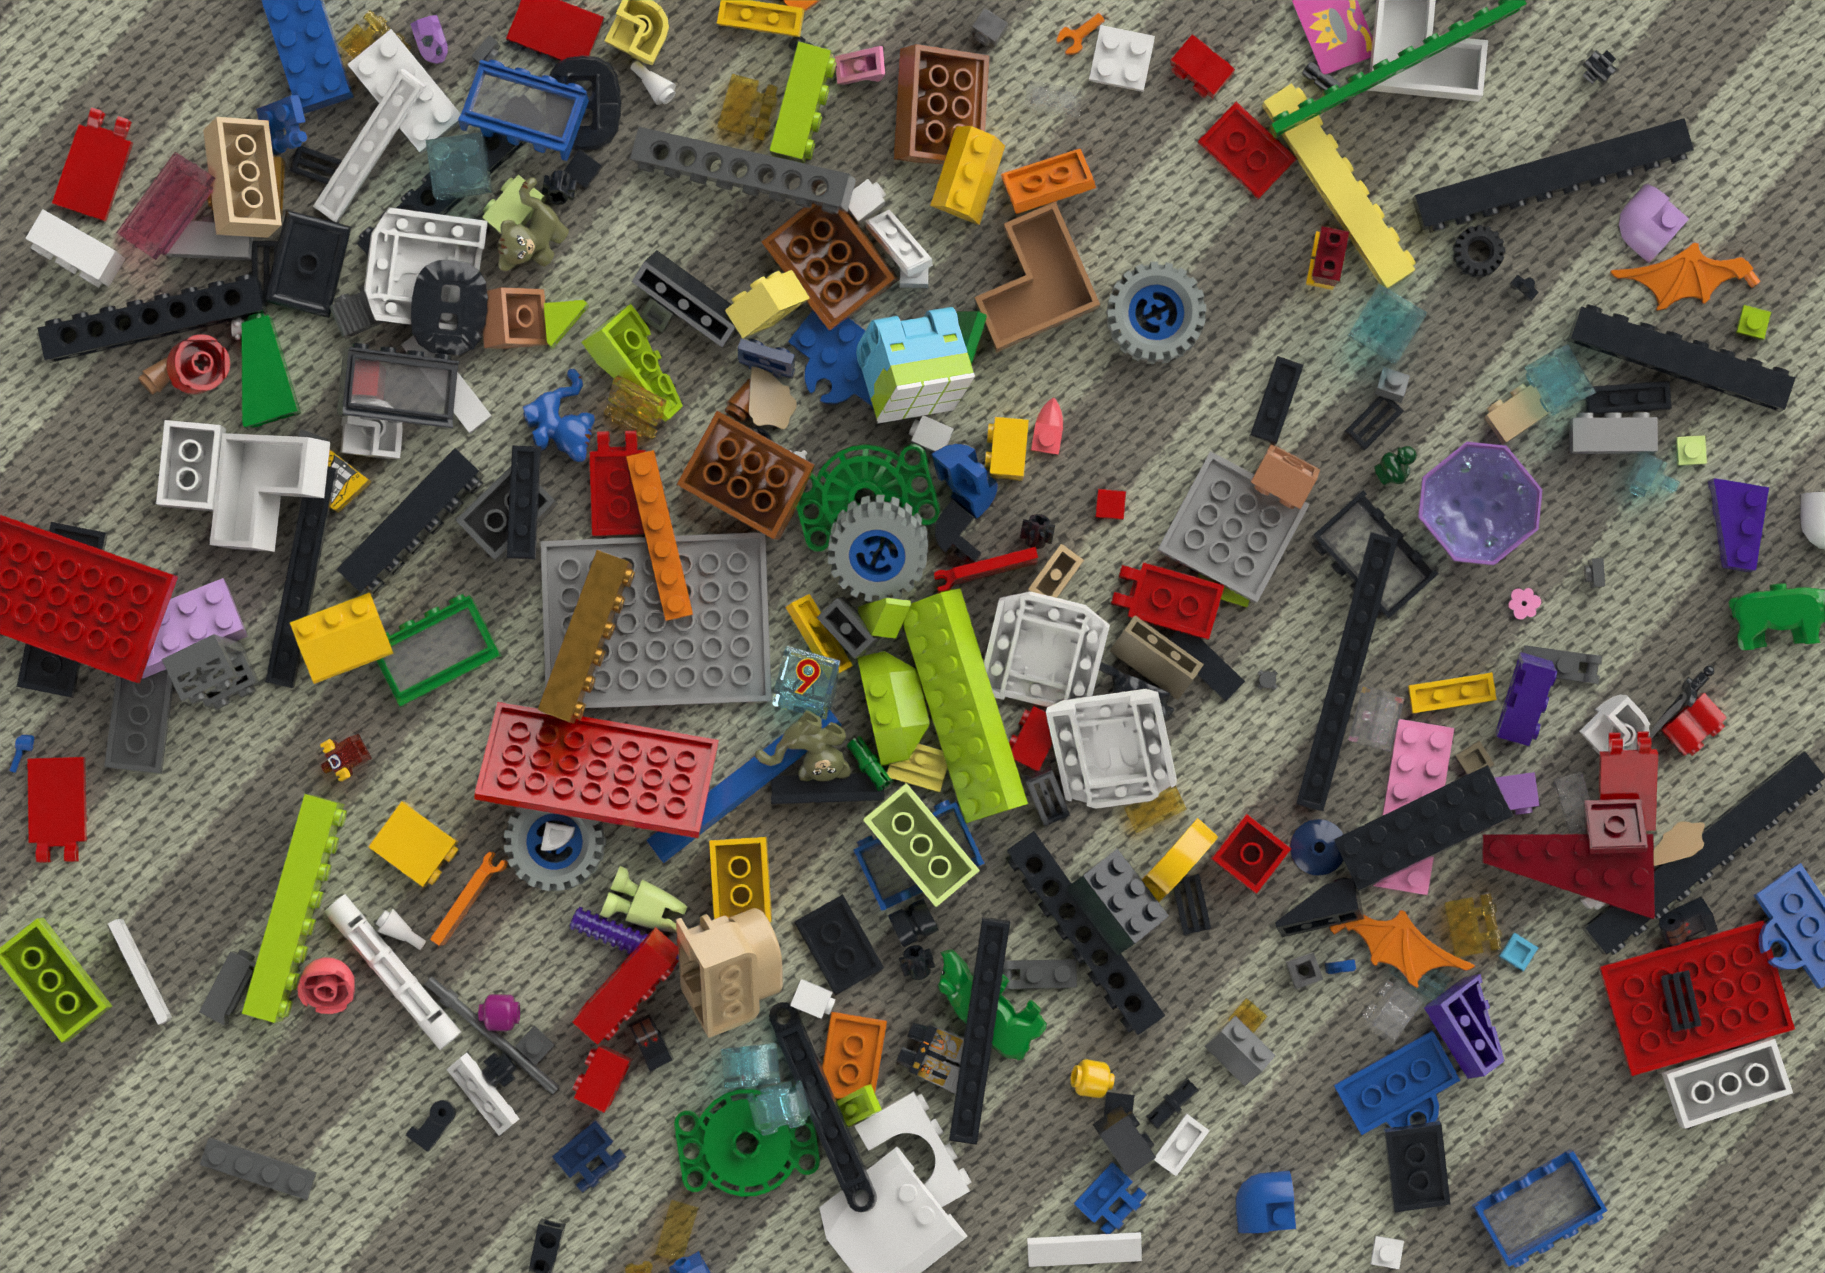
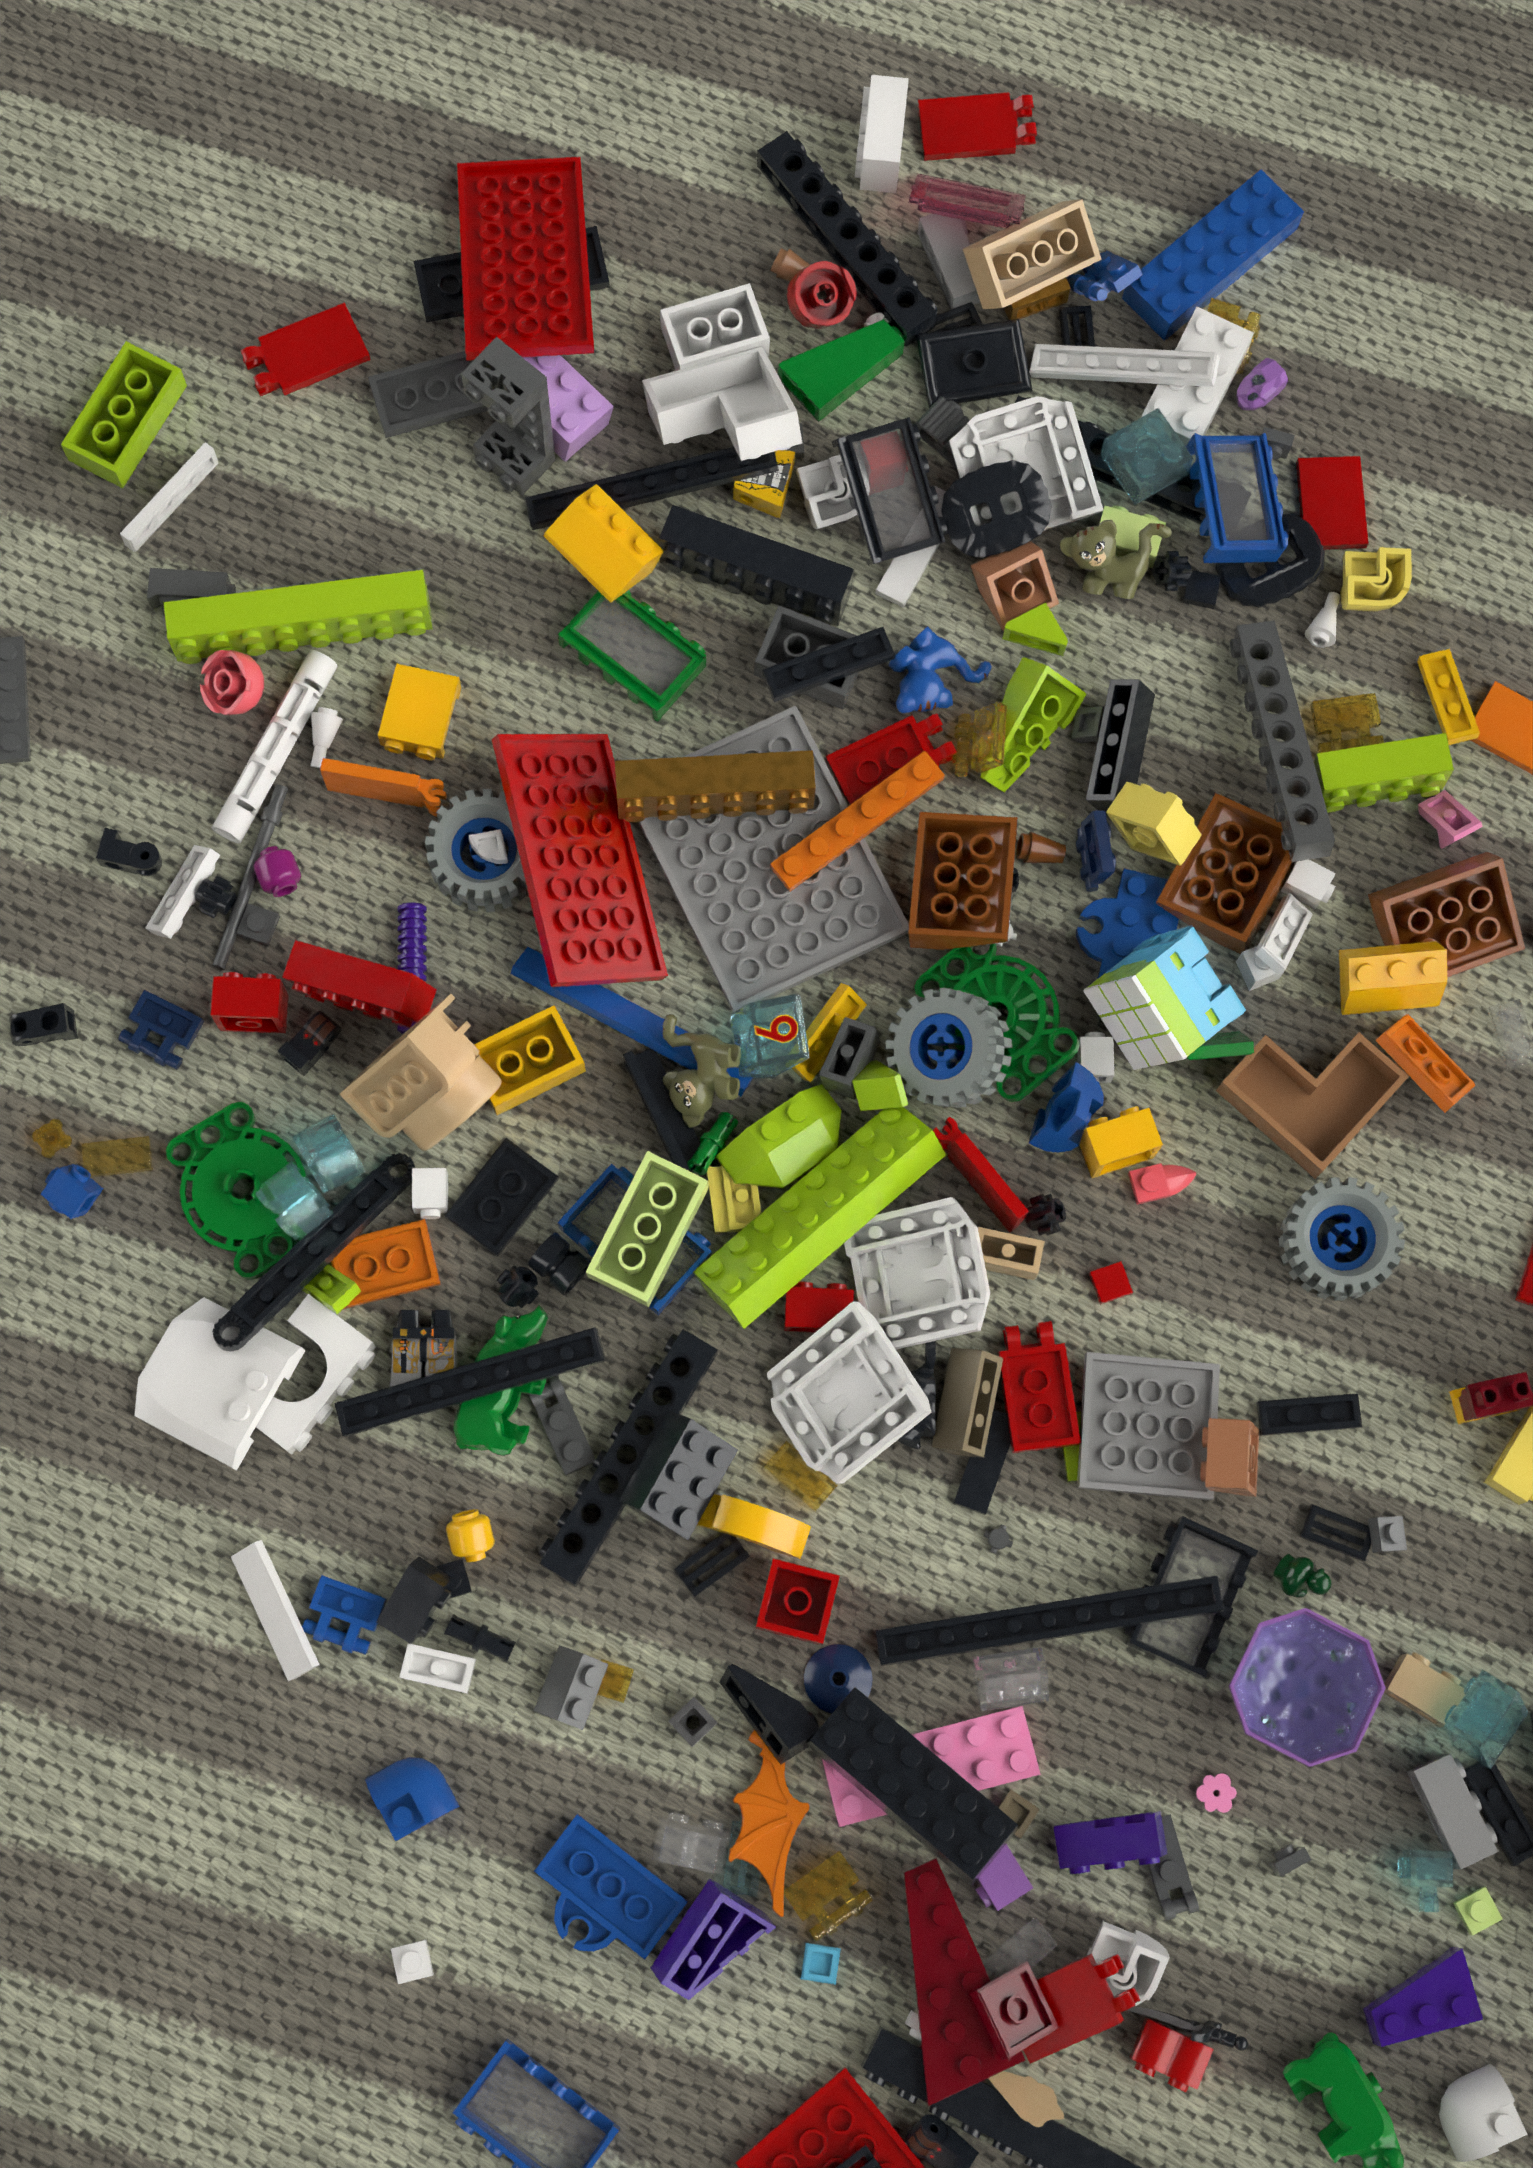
camera: 55 degrees right, 10 degrees down
(23, 742) = (356, 291): blue hand -> none
(344, 756) = (483, 605): clear red piece -> none
(647, 903) = (458, 973): yellowish green piece -> none
(769, 400) = (1053, 875): tan sticker -> none
(948, 532) = (1004, 1120): black brick -> none
(1039, 778) = (778, 1330): black tile -> none
(1340, 966) = (714, 1762): blue tile -> none
(1387, 324) = (1452, 1497): clear light blue brick -> none
(1417, 1166) = (524, 1952): black plate -> none
(1452, 692) = (1079, 1754): yellow plate -> none

